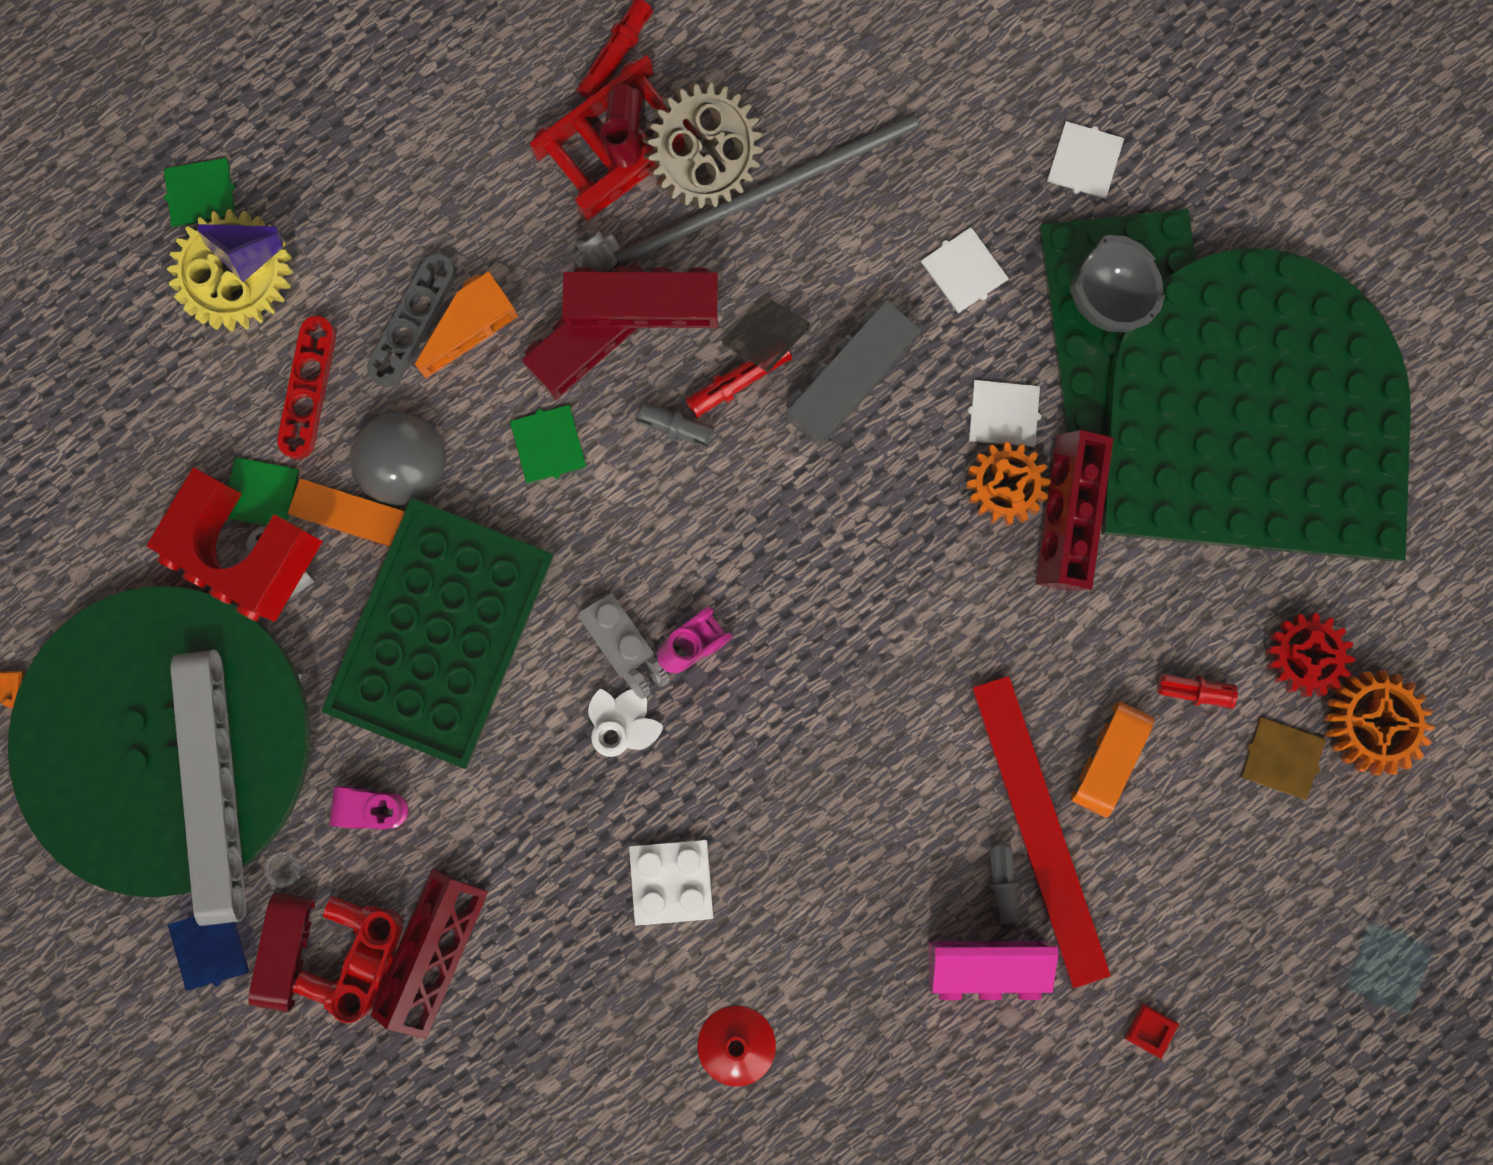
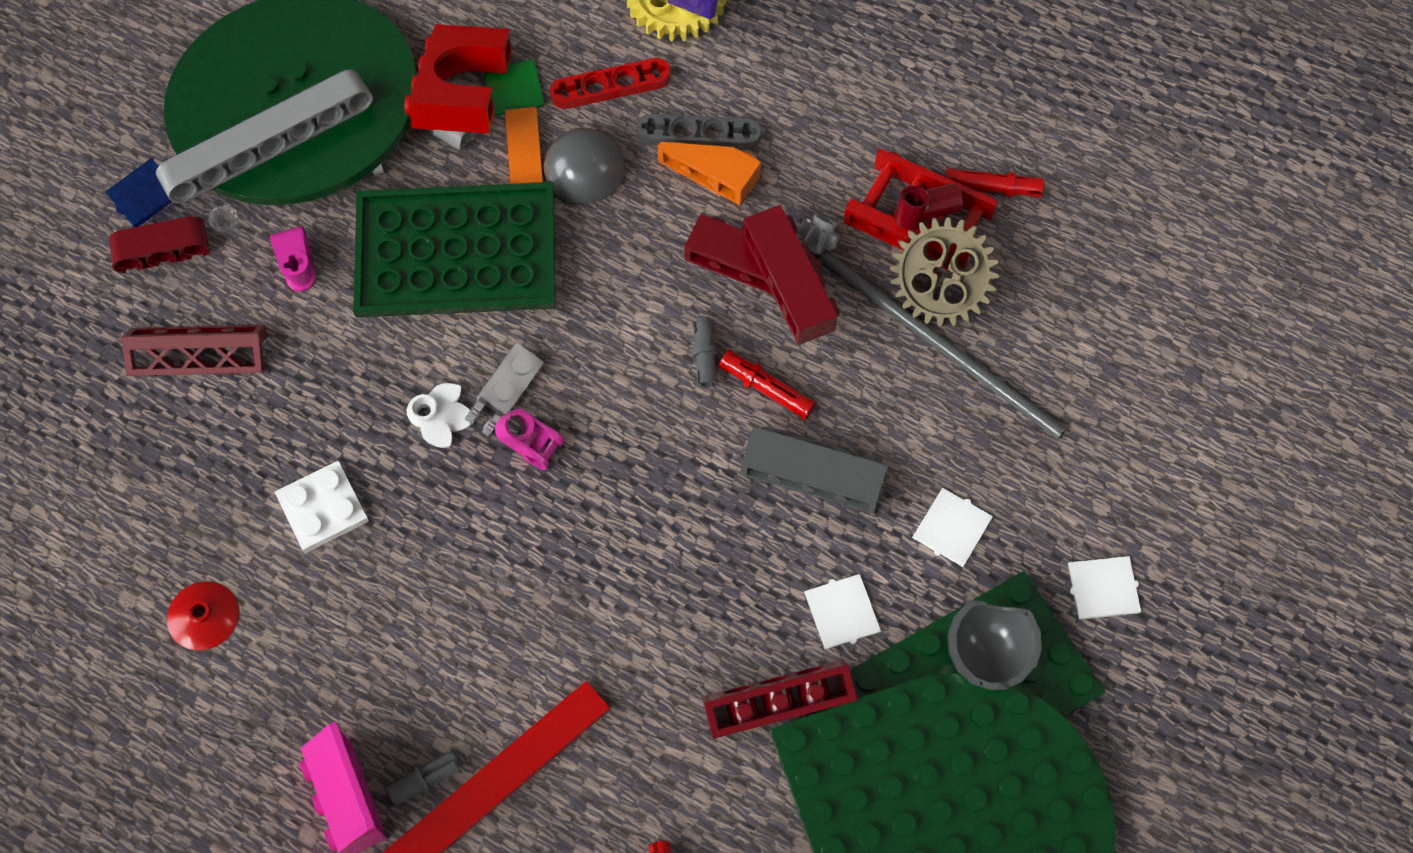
camera: 60 degrees right, 15 degrees down
(364, 965) = (170, 304): red piece -> none
(548, 444) = (646, 268): green piece -> none
(766, 333) = (815, 388): clear smoke piece -> none
(999, 468) = (790, 646): orange gear -> none
(1114, 759) = (572, 825): orange beam -> none

